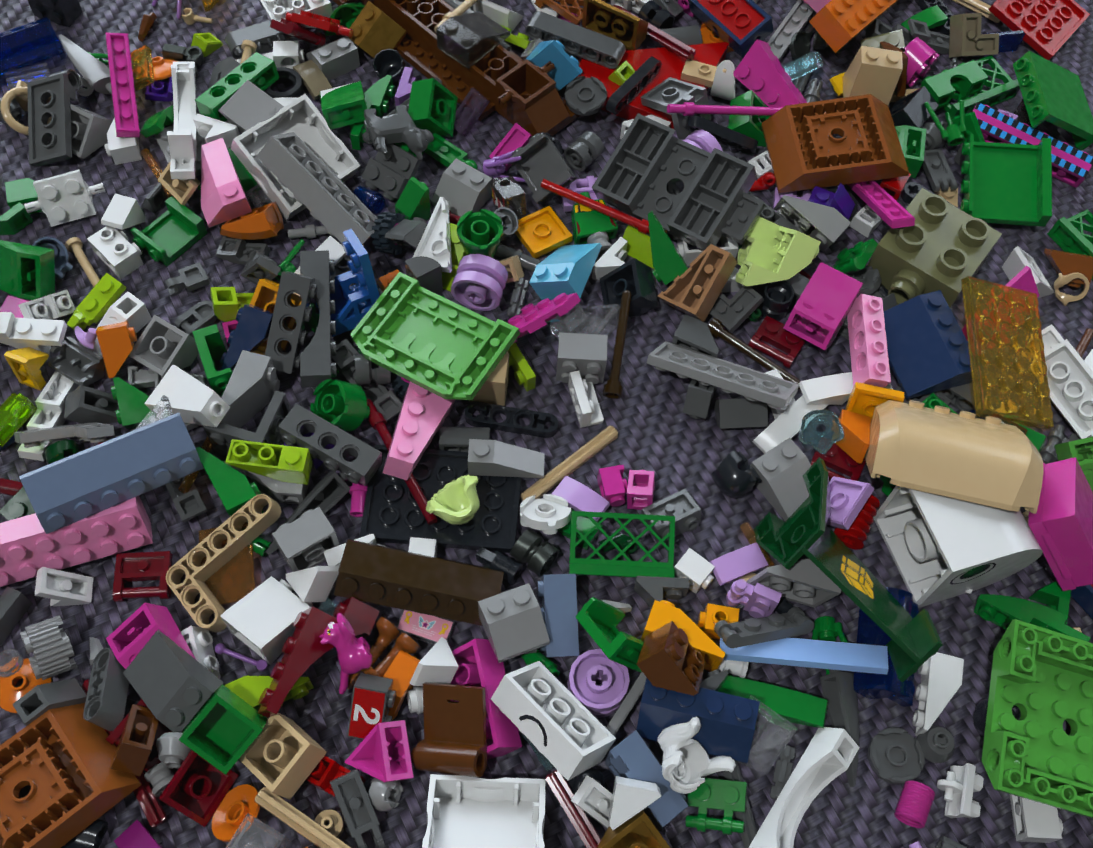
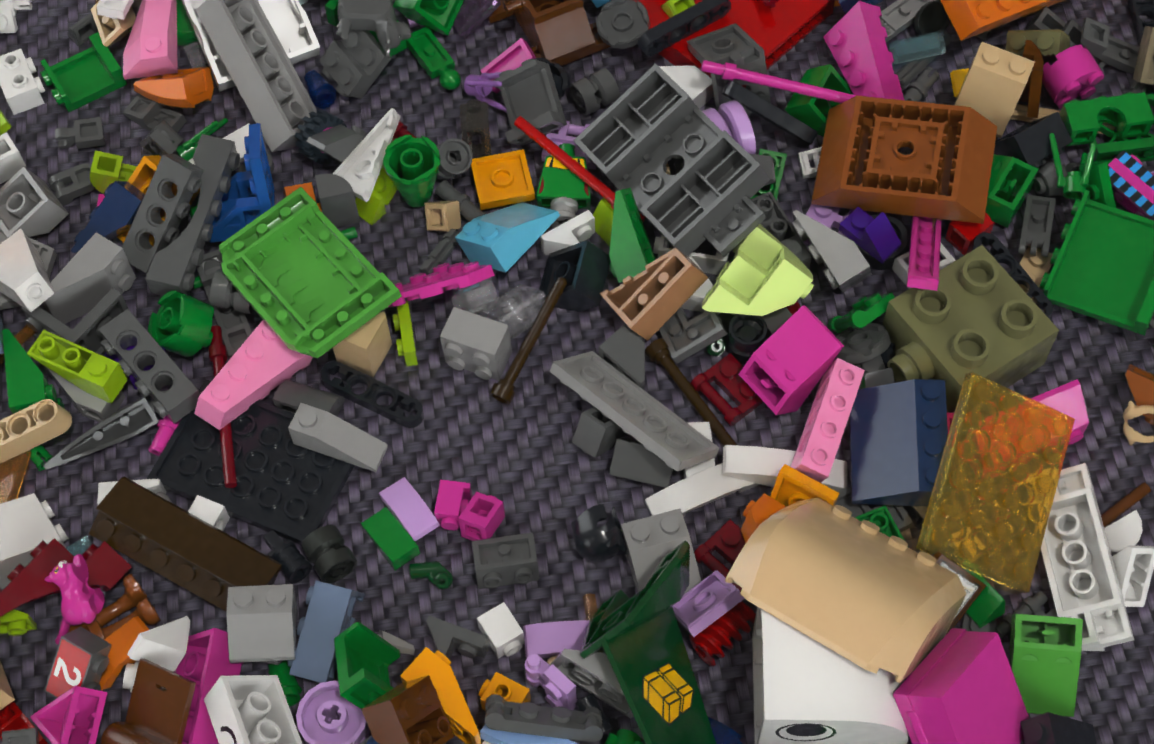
camera: 25 degrees right, 0 degrees up
(123, 213) = (38, 40): white slope -> none
(211, 349) = (66, 220): green panel -> none
(305, 540) = (81, 464): light grey brick -> none
(309, 231) = (236, 111): light grey bar -> none
(313, 583) = (73, 515): white slope -> none
(414, 200) = (363, 106): green slope -> none
(425, 627) = (178, 601): bright pink tile -> none
(456, 501) = (260, 471): yellowish green hair -> none
(463, 188) = (429, 105): light grey slope -> none
(479, 282) = (397, 222): lavender wheel -> none
(545, 513) = (358, 513): white plate -> none
(571, 463) = (415, 466): tan axle -> none
(584, 400) = (463, 396): white bracket -> none
(622, 567) = (419, 601): green fence -> none
(699, 73) = (782, 29): tan plate -> none
(724, 83) = (810, 48): white piece -> none
(764, 182) = (801, 186): red arm -> none
(821, 440) = (711, 510): clear light blue piece -> none
(932, 16) = (1123, 20): green slope -> none
(1017, 261) = (1099, 390): white slope -> none

